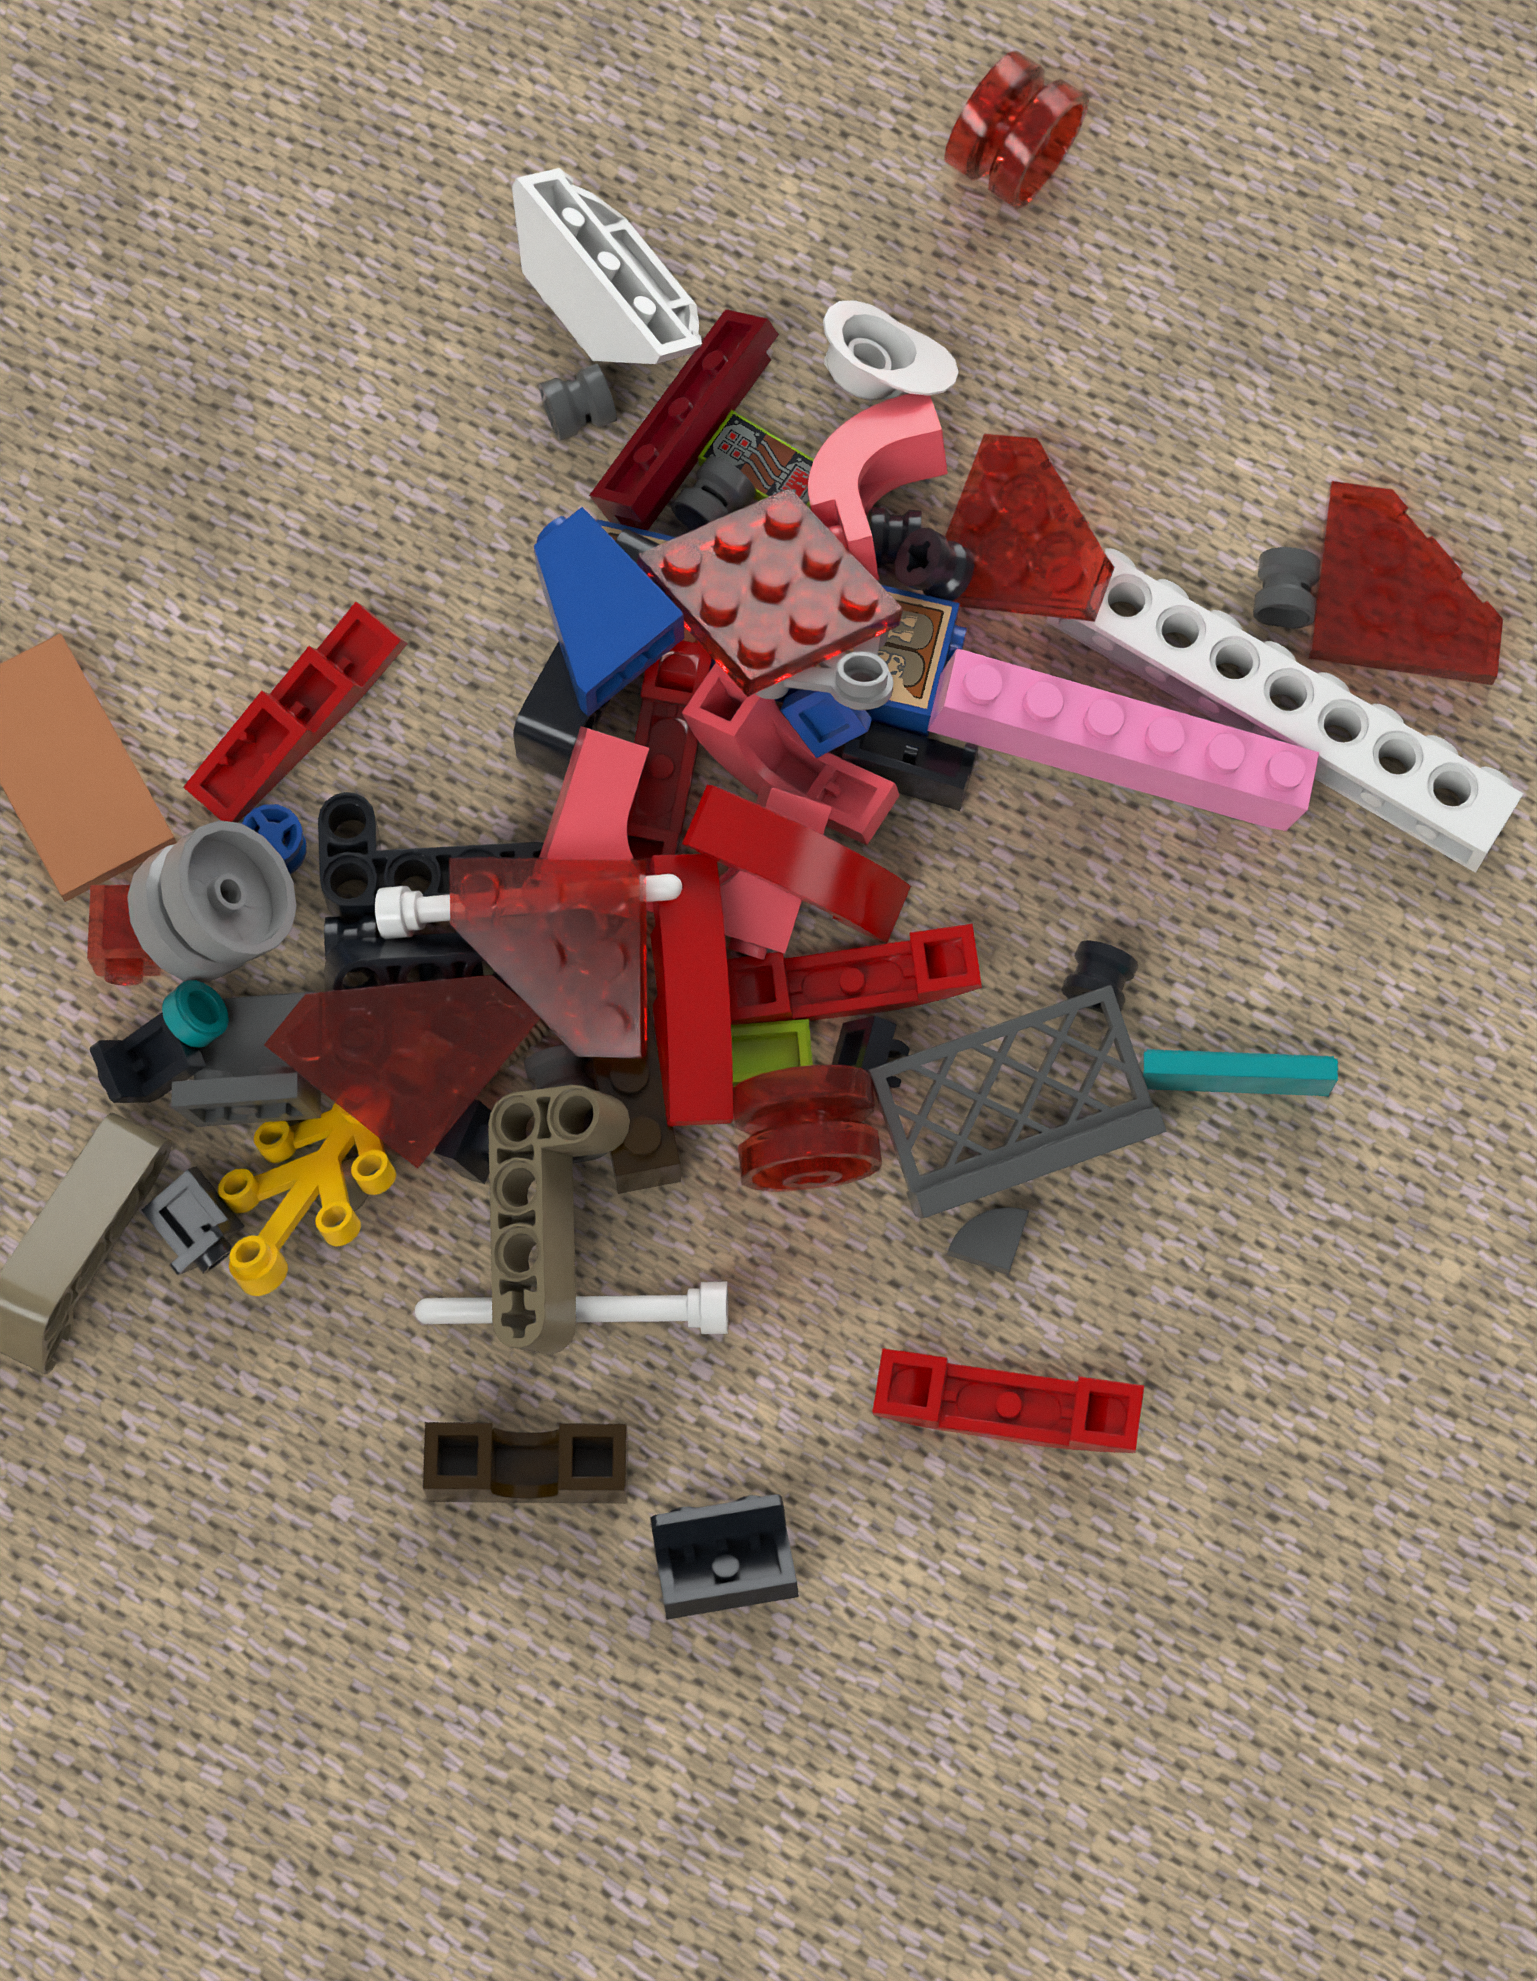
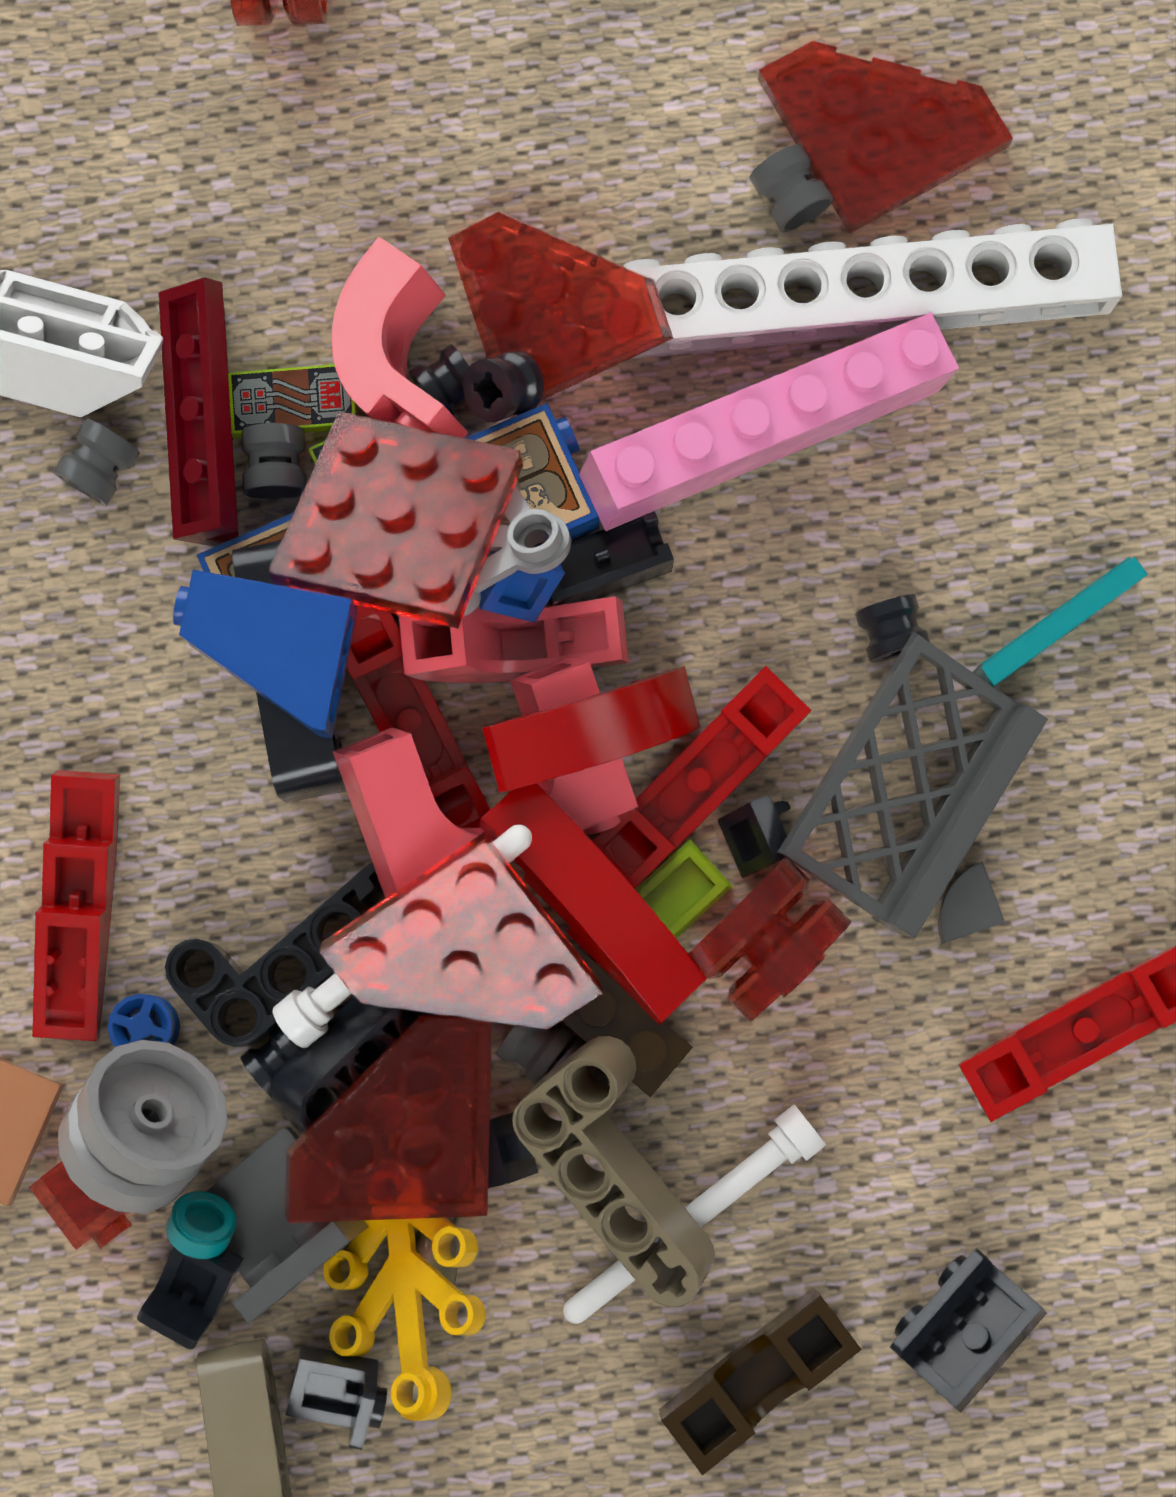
camera: 35 degrees left, 10 degrees up
(882, 357) = (318, 233): white piece -> none

